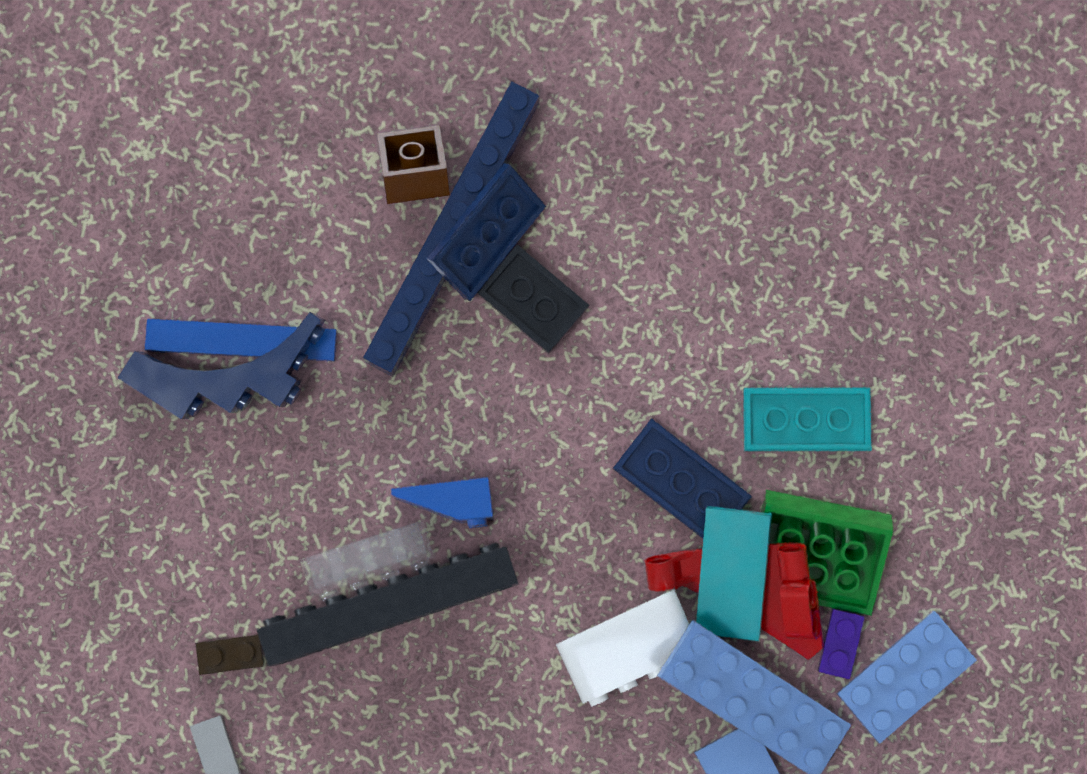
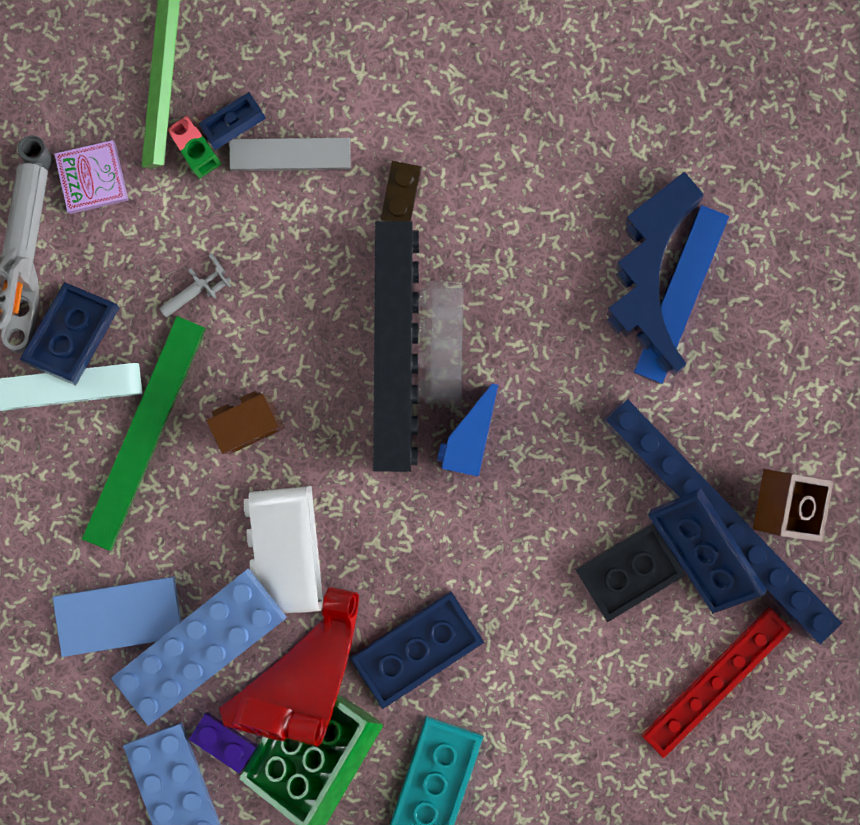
camera: 110 degrees right, 5 degrees up
(513, 730) = (245, 423): none -> reddish brown brick
(611, 180) = (716, 682): none -> red tile
(733, 572) = (318, 670): teal tile -> none

